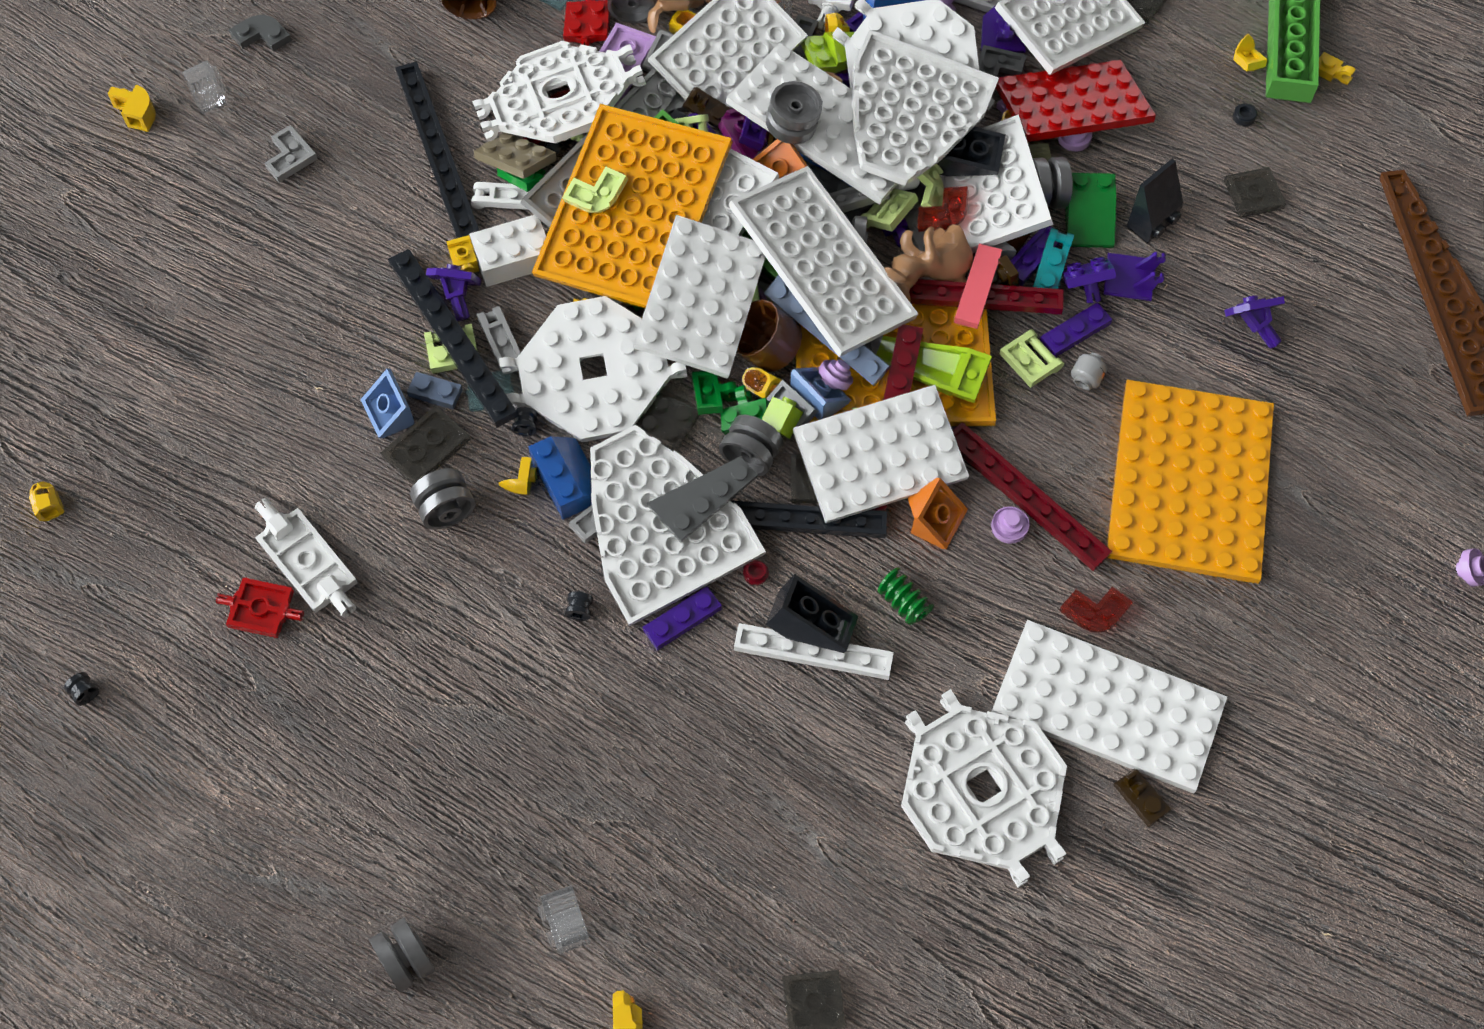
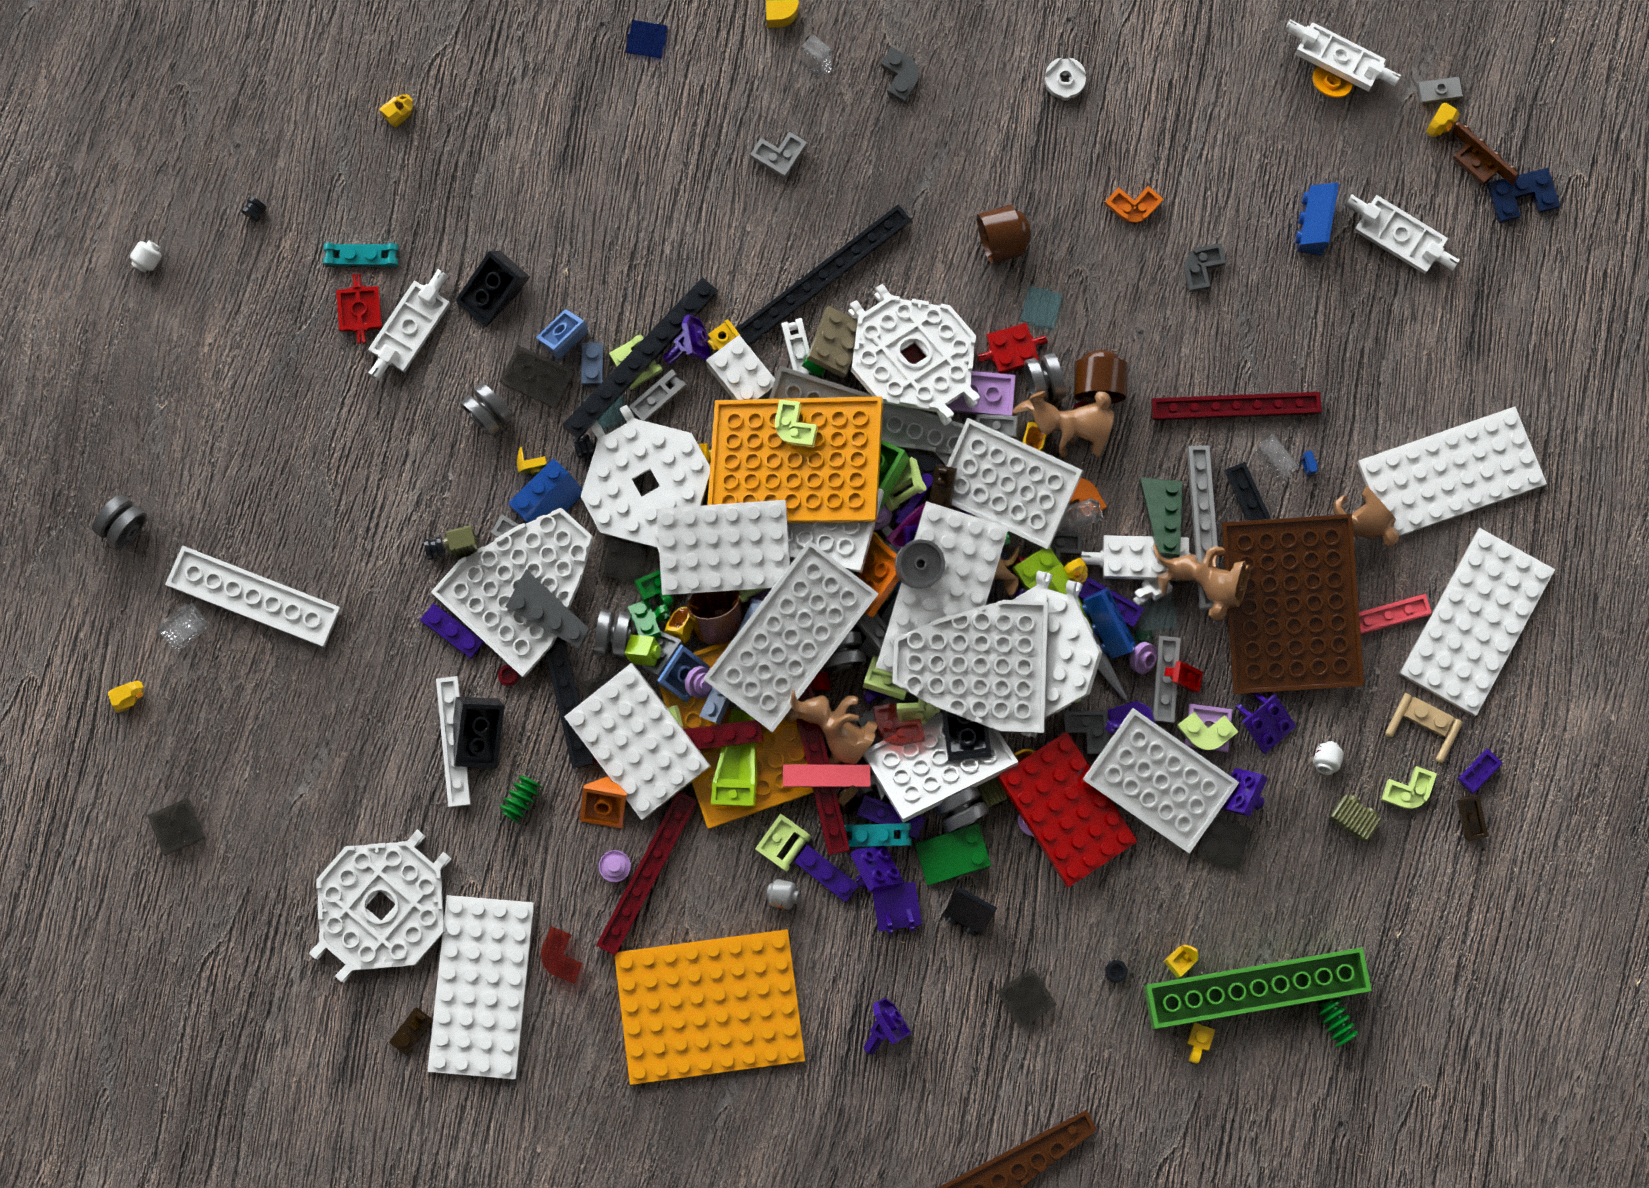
camera: 70 degrees right, 15 degrees up
(76, 831) = (145, 256): none -> white head
(100, 239) = (646, 39): none -> clear blue piece
(196, 589) = (360, 255): none -> teal plate
(302, 461) = (492, 287): none -> black slope
(555, 828) = (253, 596): none -> white plate
(586, 567) = (461, 542): none -> olive brick

